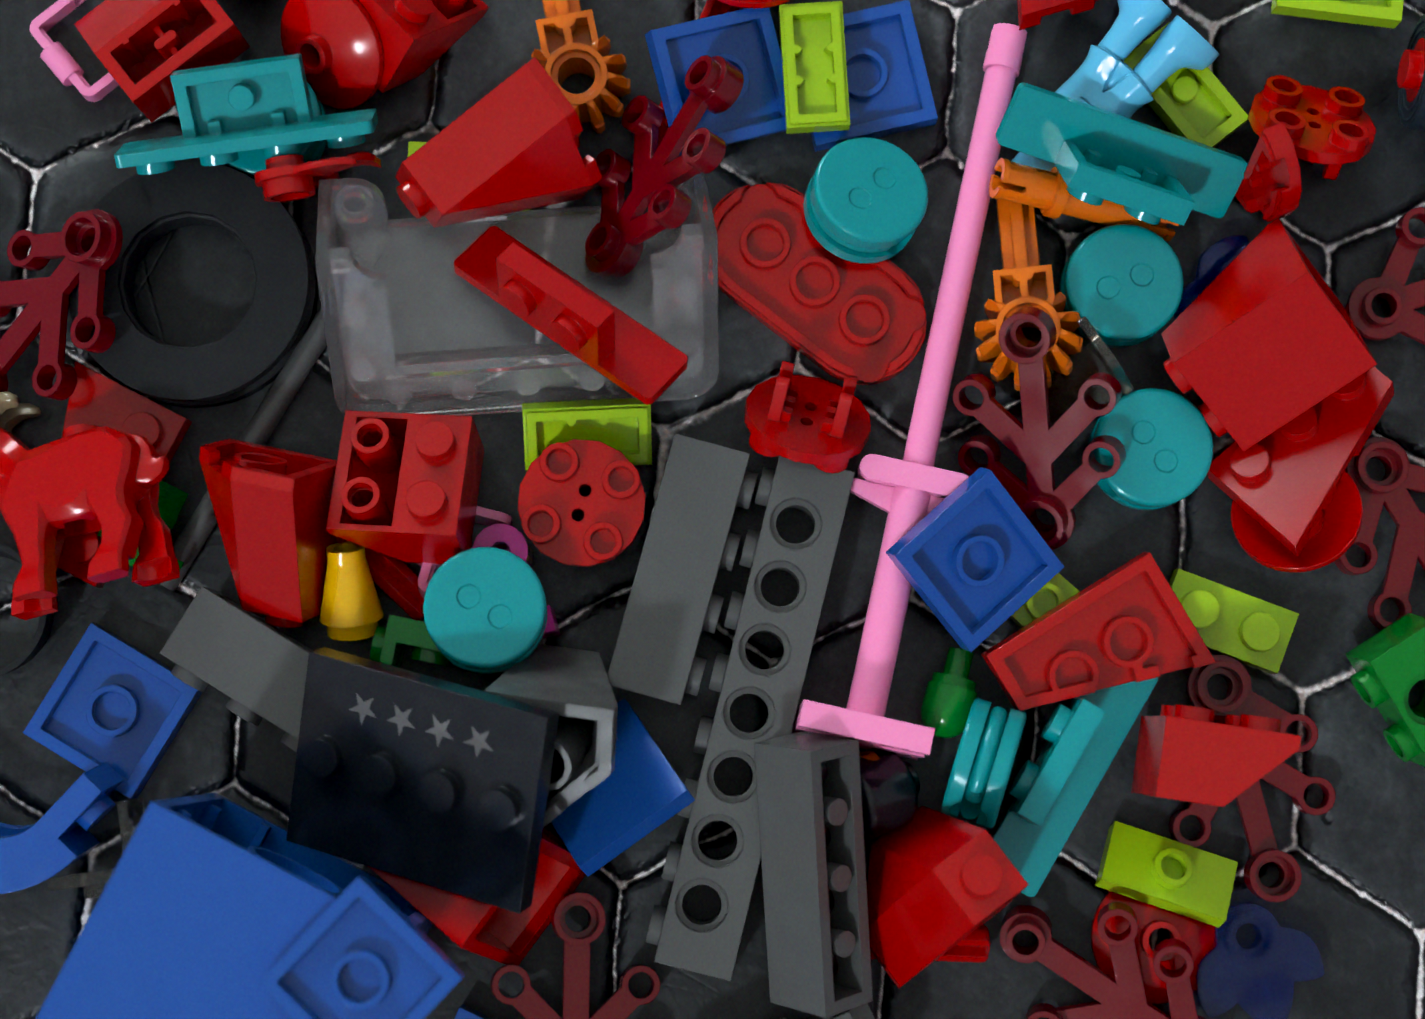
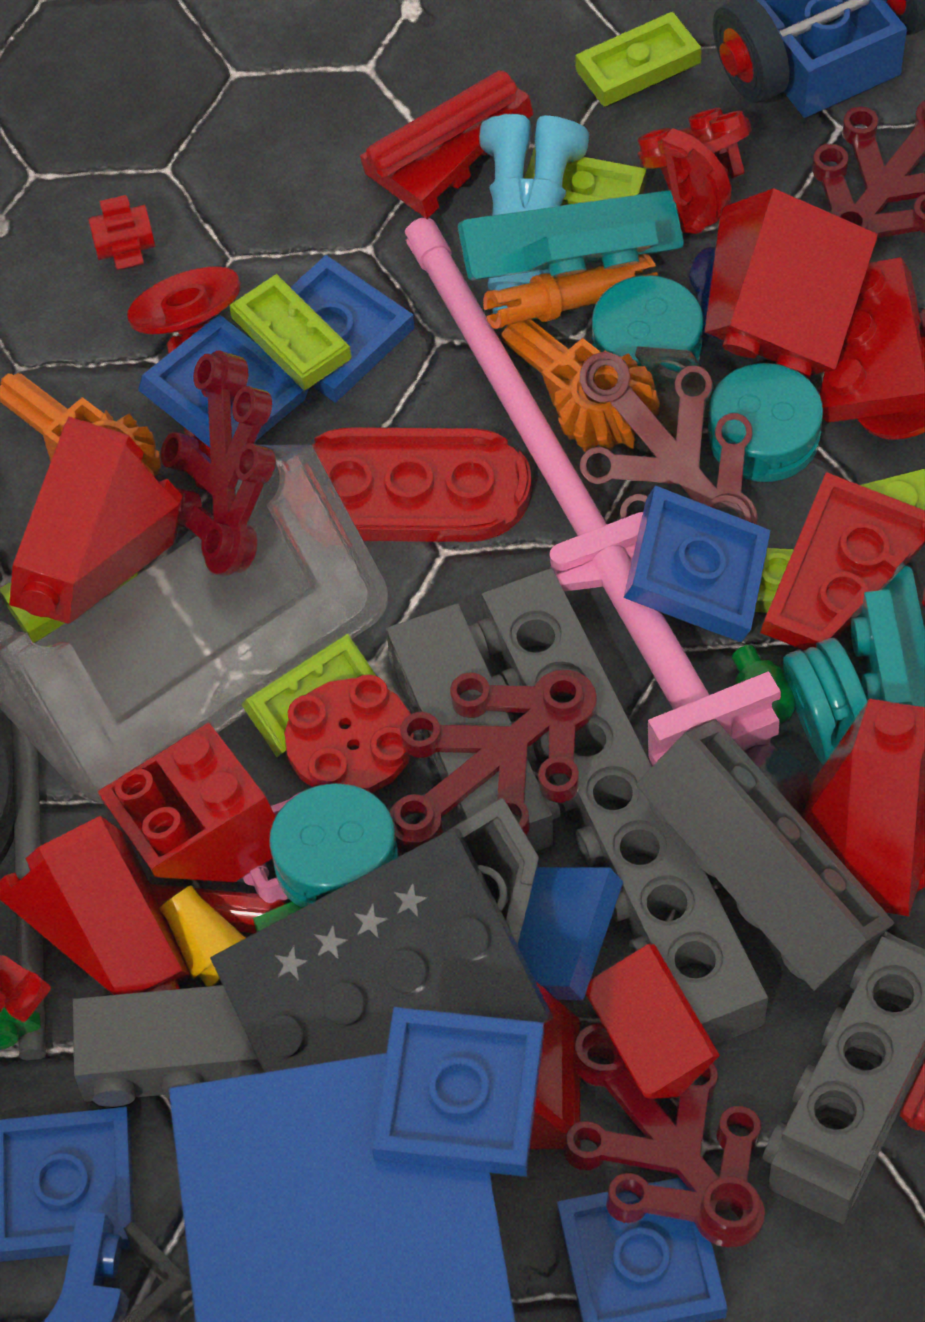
camera: 35 degrees left, 25 degrees down
(571, 315) = (226, 591): red bracket -> none
(625, 934) = (651, 1024): none -> red slope
(681, 620) = (496, 748): none -> dark red plant
(807, 420) = (466, 569): red plate -> none
(865, 200) = (403, 394): teal head -> none

